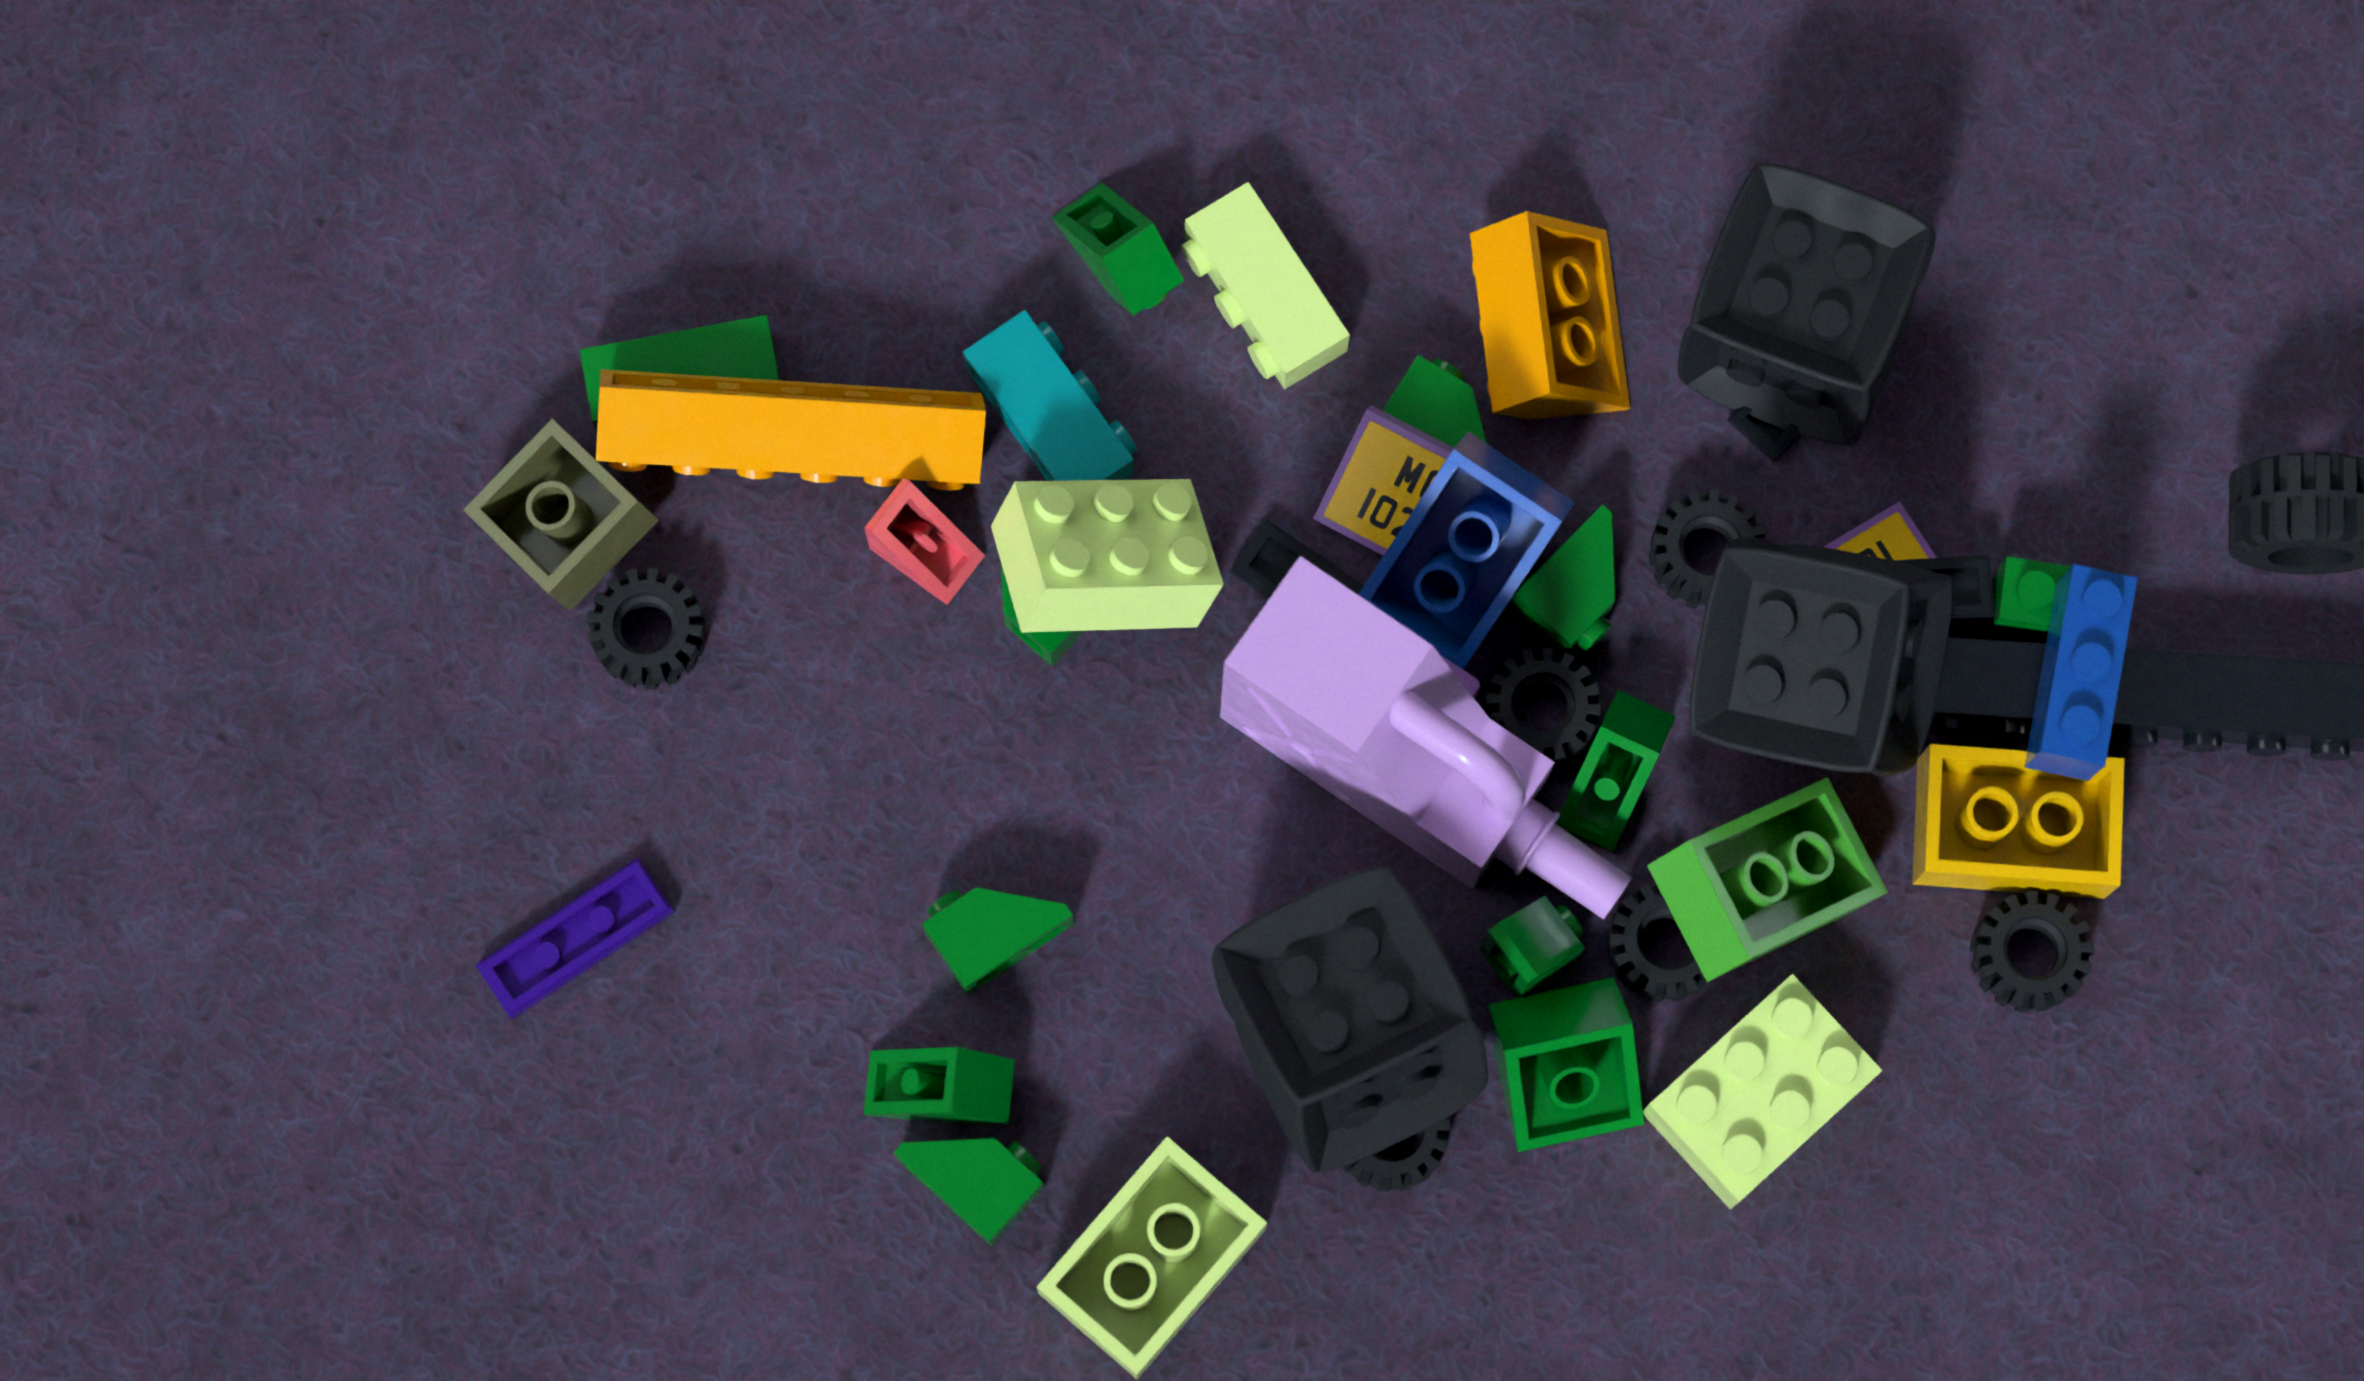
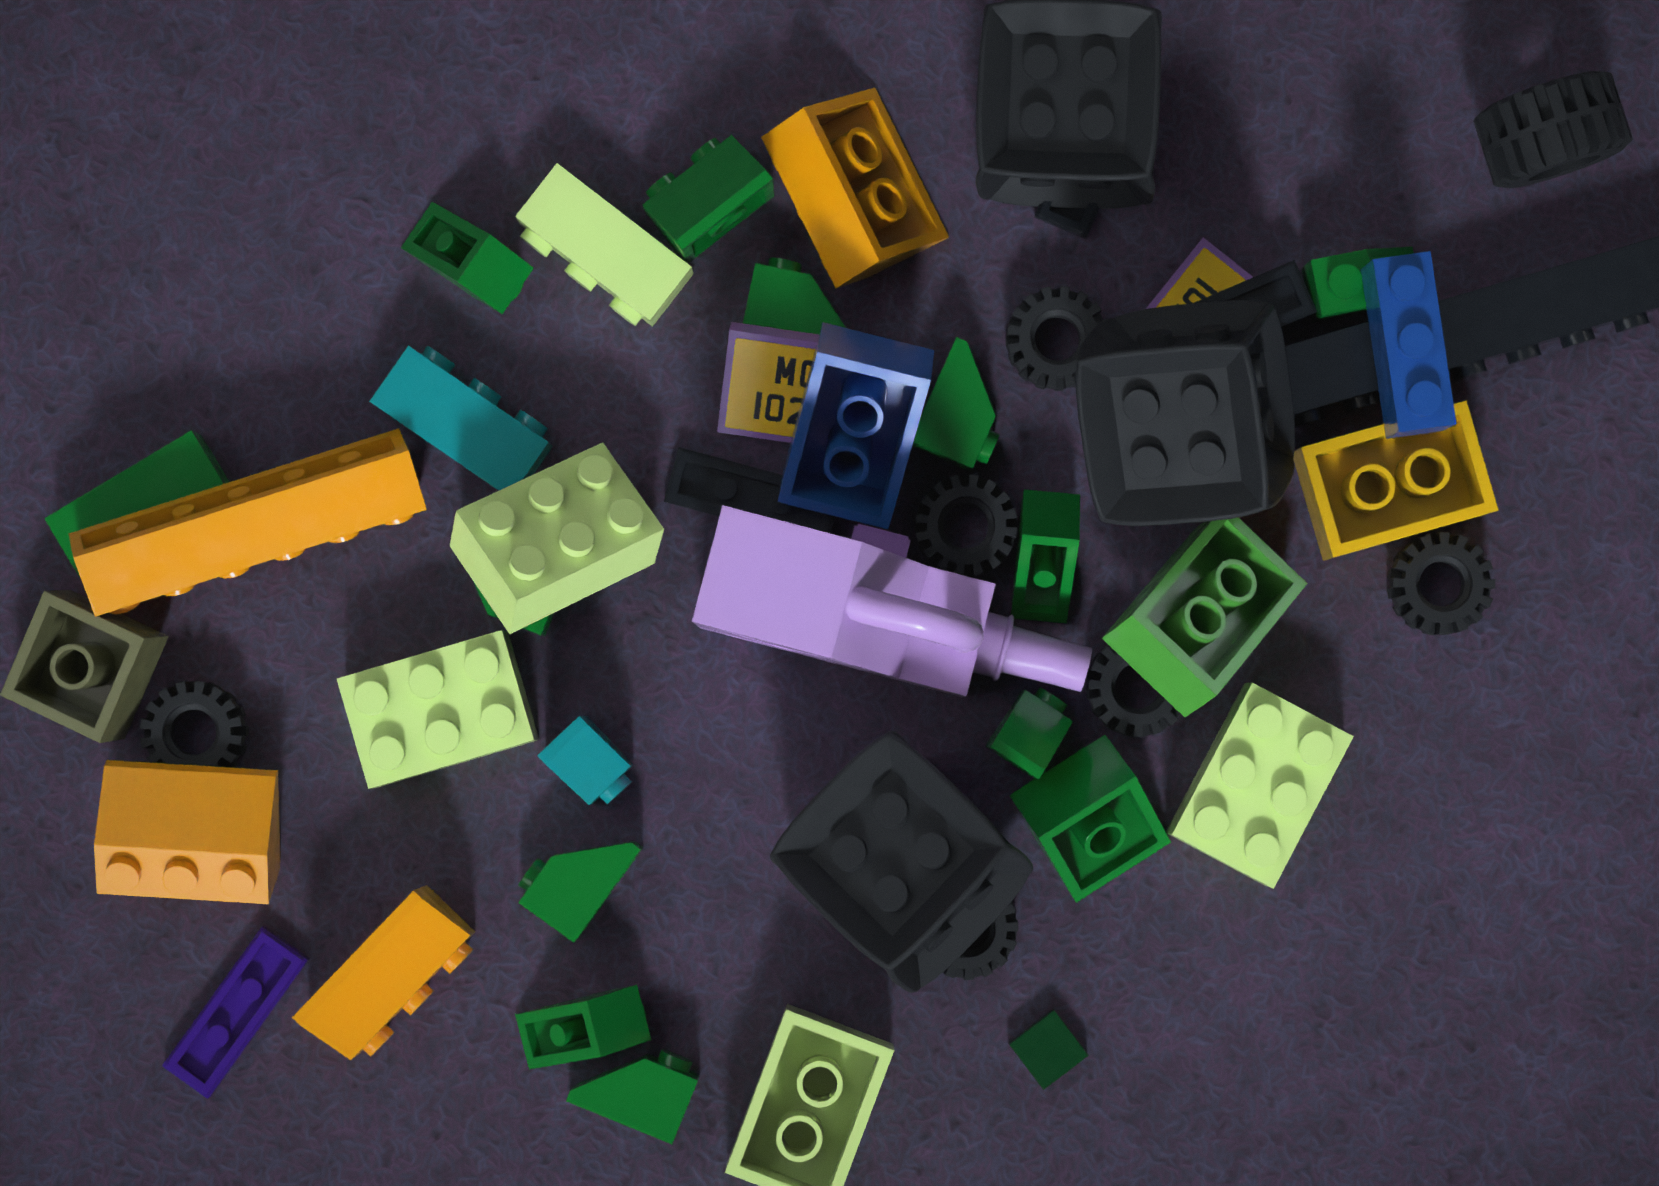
camera: 20 degrees left, 10 degrees up
(602, 723) = (187, 832): none -> light orange slope
(753, 949) = (387, 975): none -> light orange slope
(912, 695) = (437, 709): none -> yellowish green brick
(922, 542) = (399, 575): coral slope -> none
(1050, 802) = (587, 761): none -> teal slope
(1394, 275) = (708, 197): none -> green slope
(1432, 1297) = (1048, 1049): none -> dark green tile

